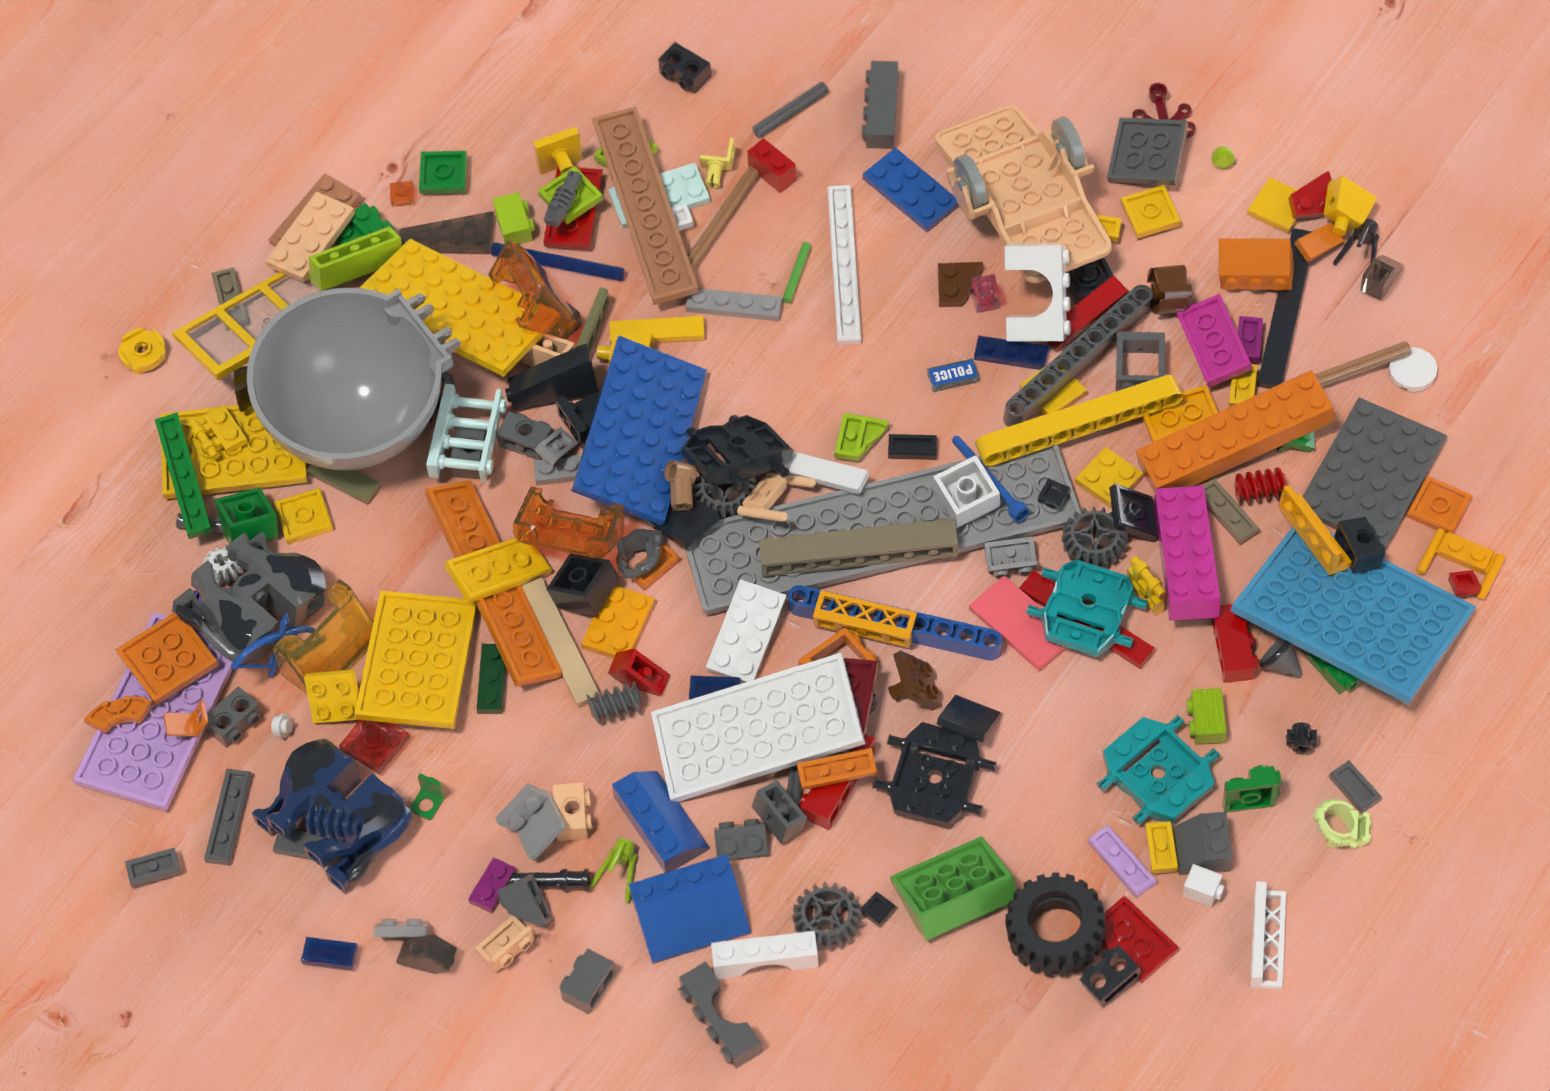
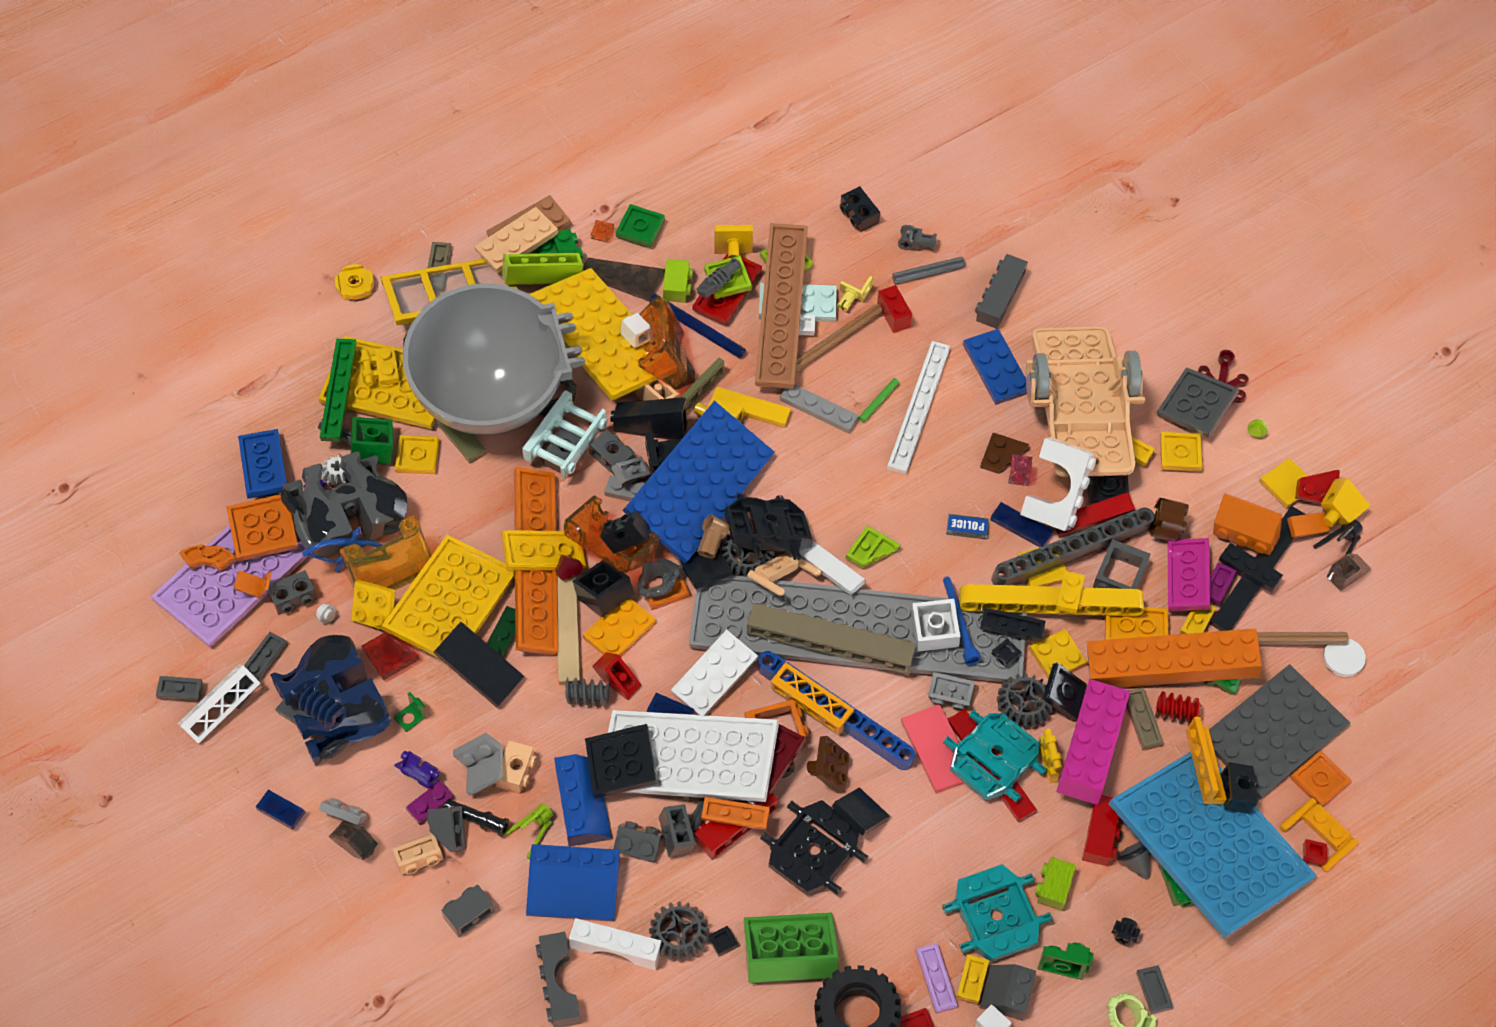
camera: 15 degrees right, 0 degrees up
(132, 588) = (262, 463): none -> blue plate
(197, 863) = (213, 697): none -> white fence
(476, 856) = (426, 775): none -> dark purple hinge
(481, 716) = (478, 664): none -> black tile
(497, 289) = (635, 330): none -> white brick
(533, 576) = (567, 567): none -> dark red tile
(584, 513) = (625, 532): none -> black brick
(686, 760) = (621, 761): none -> black plate
(761, 79) = (915, 238): none -> dark grey connector
(912, 447) = (911, 572): black tile -> none
(1048, 461) = (1012, 624): none -> black plate
(1097, 403) = (1070, 592): none -> yellow plate
(1276, 309) = (1250, 567): none -> black plate

